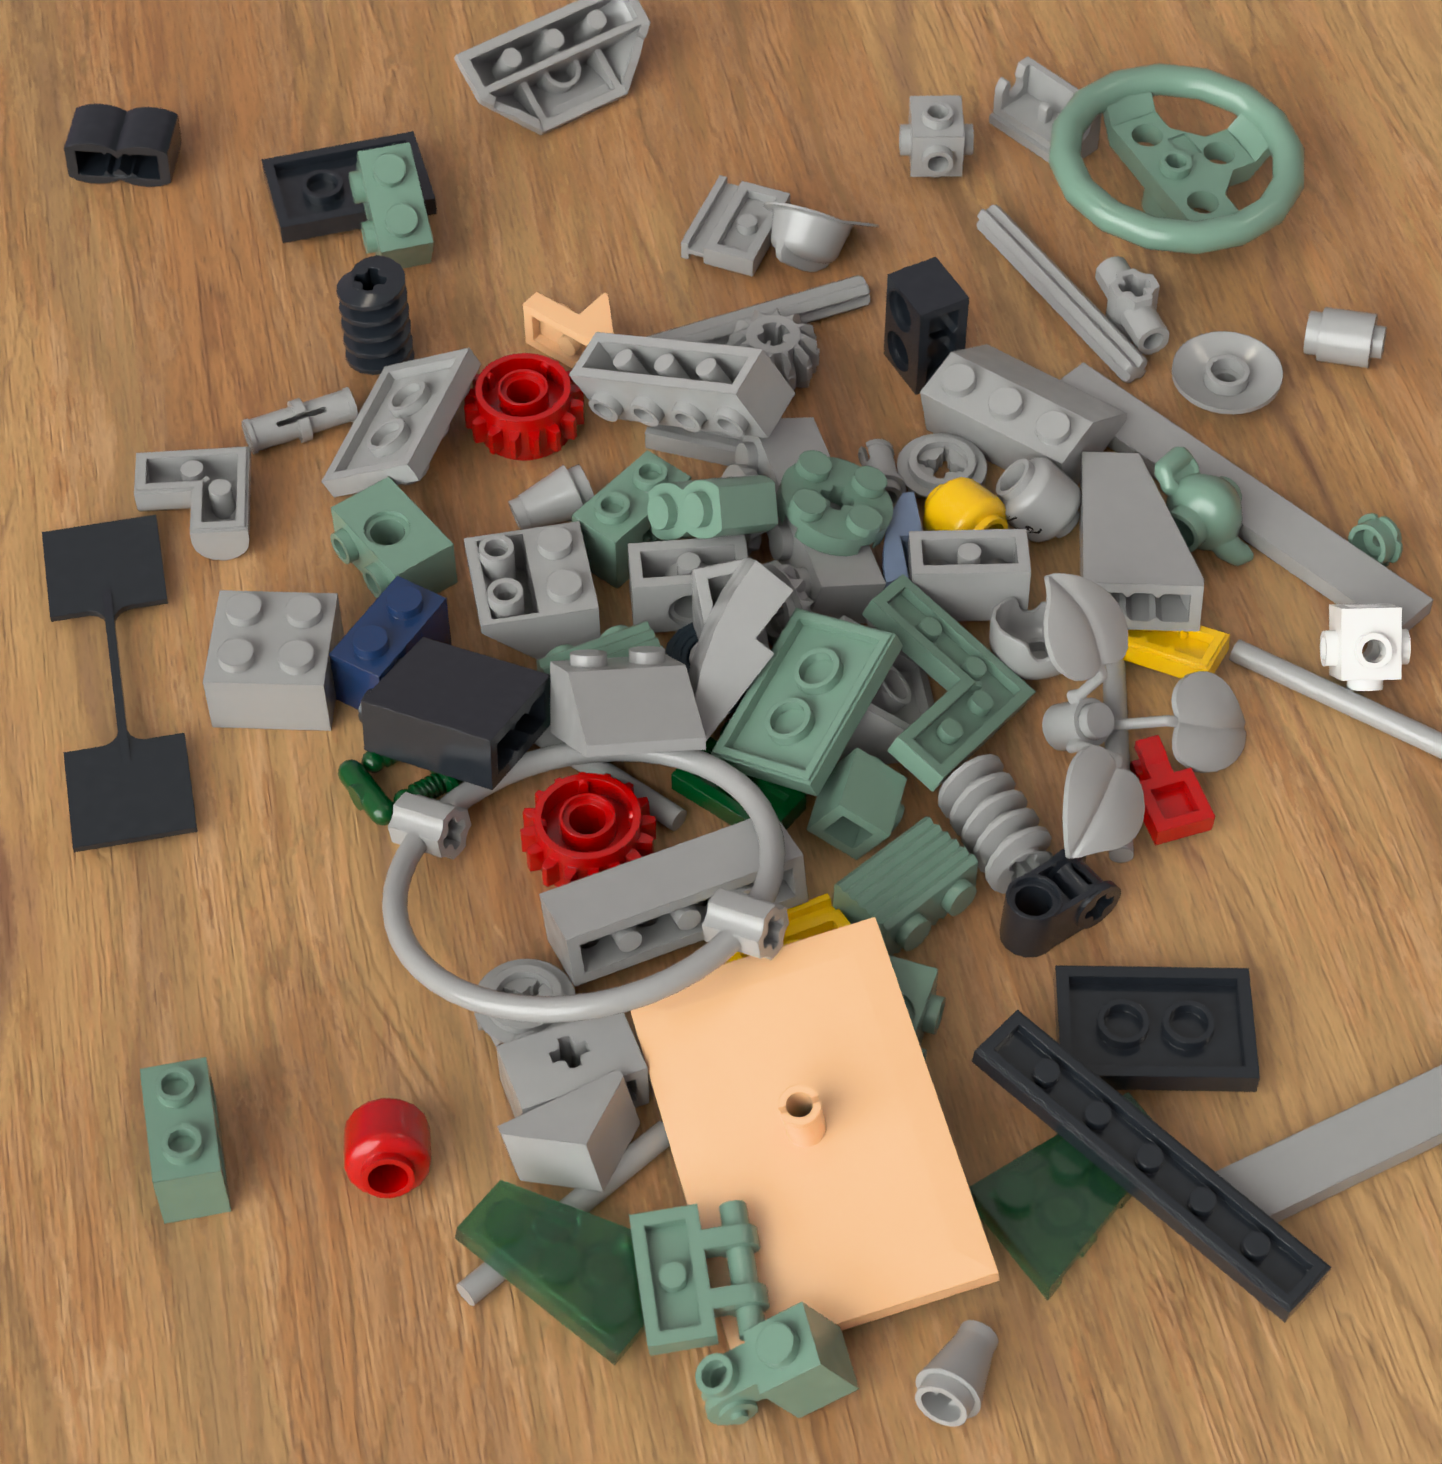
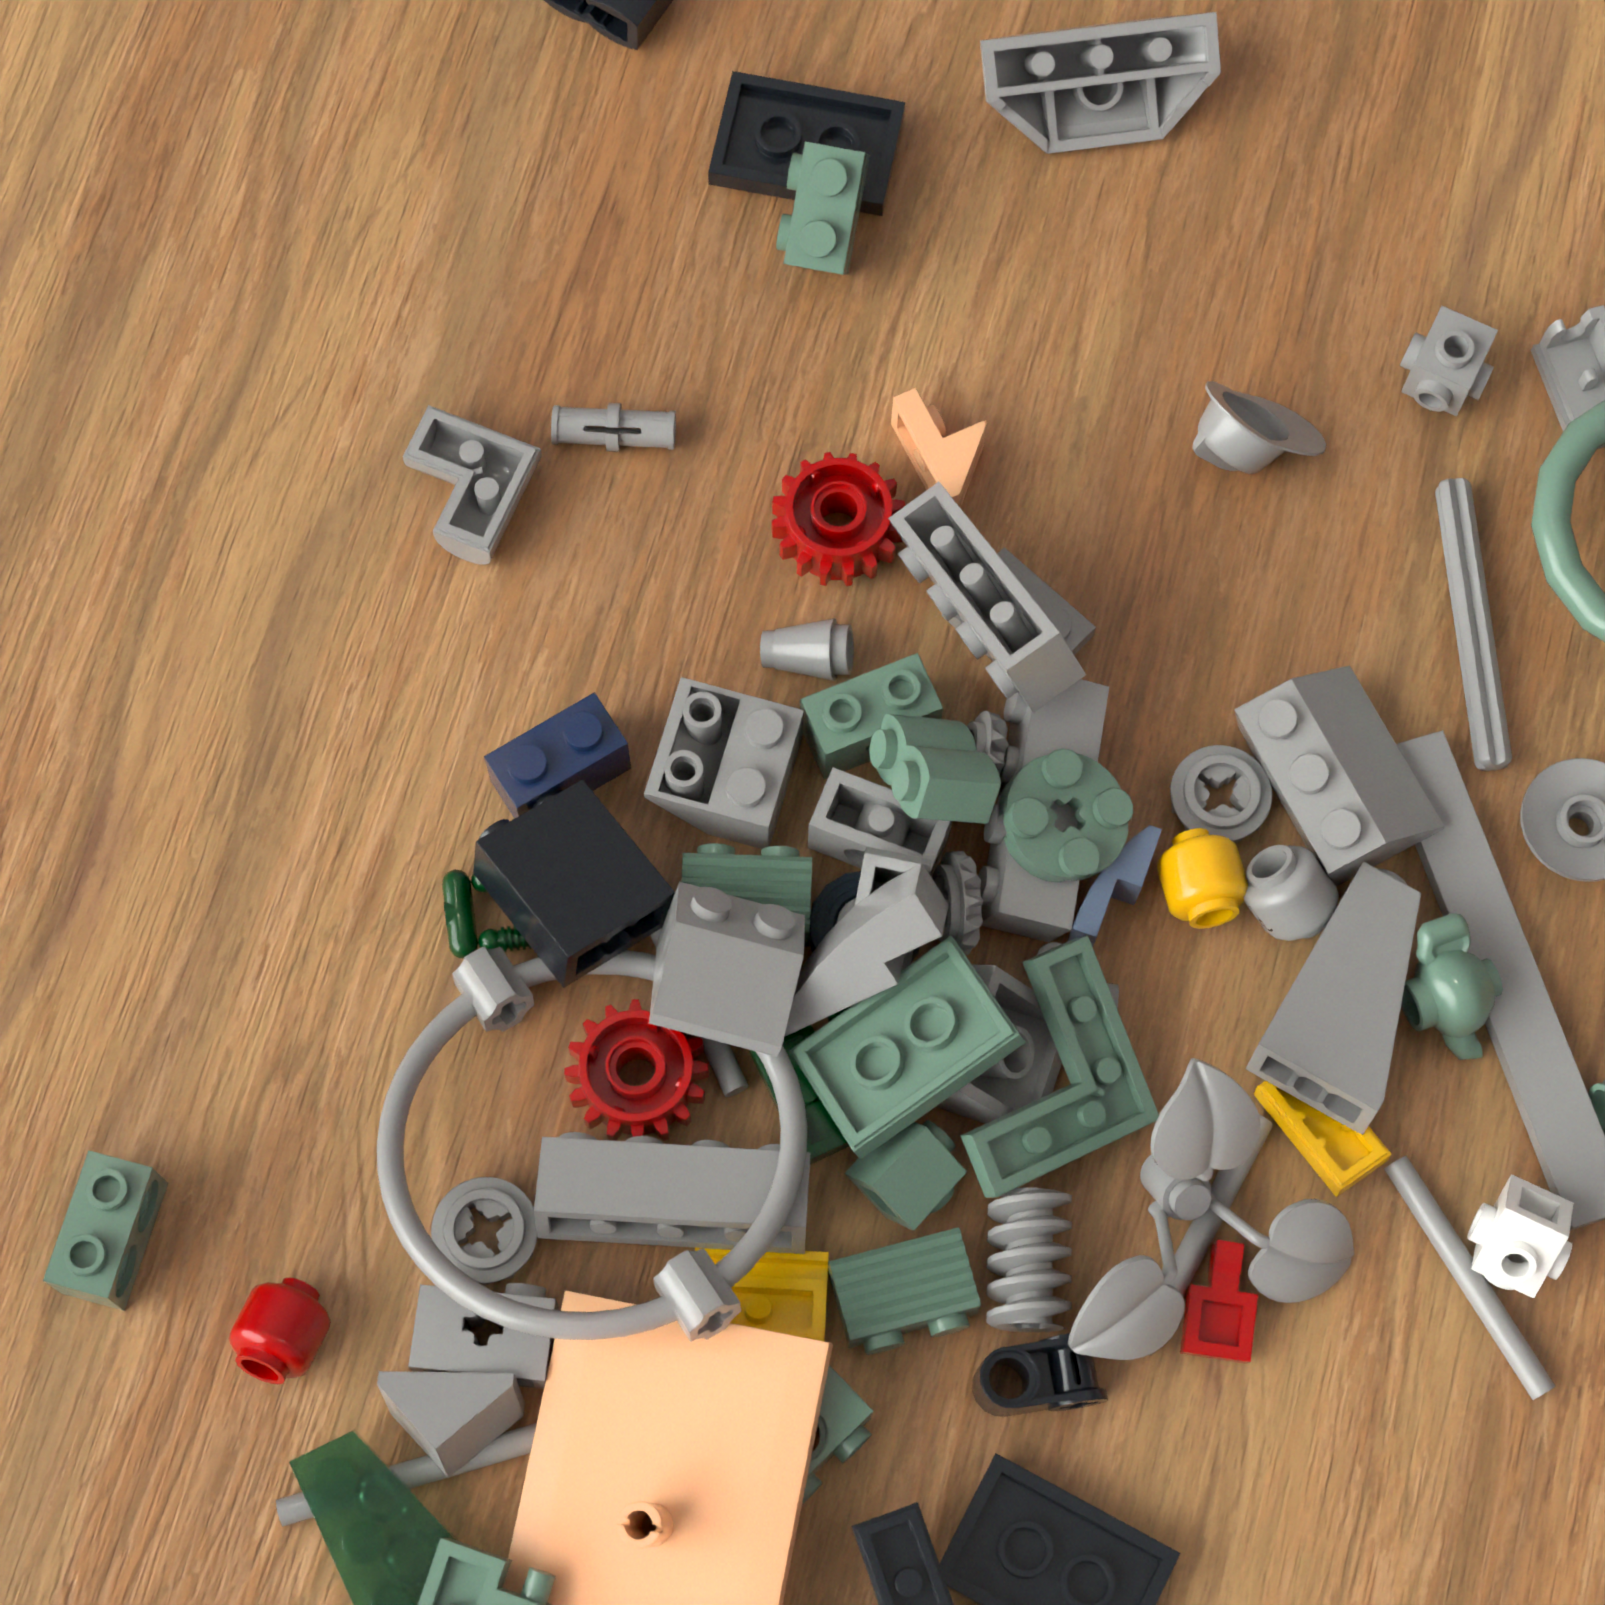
camera: 25 degrees right, 20 degrees up
(133, 784) = (251, 795): black hinge -> none
(272, 660) = (440, 720): light grey brick -> none
(375, 315) = (736, 347): black piece -> none
(391, 538) = (627, 598): sand green brick -> none
(402, 422) = (703, 488): light grey plate -> none
(733, 226) = (1167, 378): light grey plate -> none
(785, 341) = (1147, 573): light grey gear -> none
(810, 304) = (1119, 511): light grey axle -> none
(882, 458) = (1153, 773): light grey pin -> none
(923, 320) = (1291, 618): black brick -> none
(970, 569) = (1164, 954): light grey brick -> none
(1019, 640) = (1176, 1039): light grey hair -> none
(1132, 304) = (1535, 682): light grey axle -> none

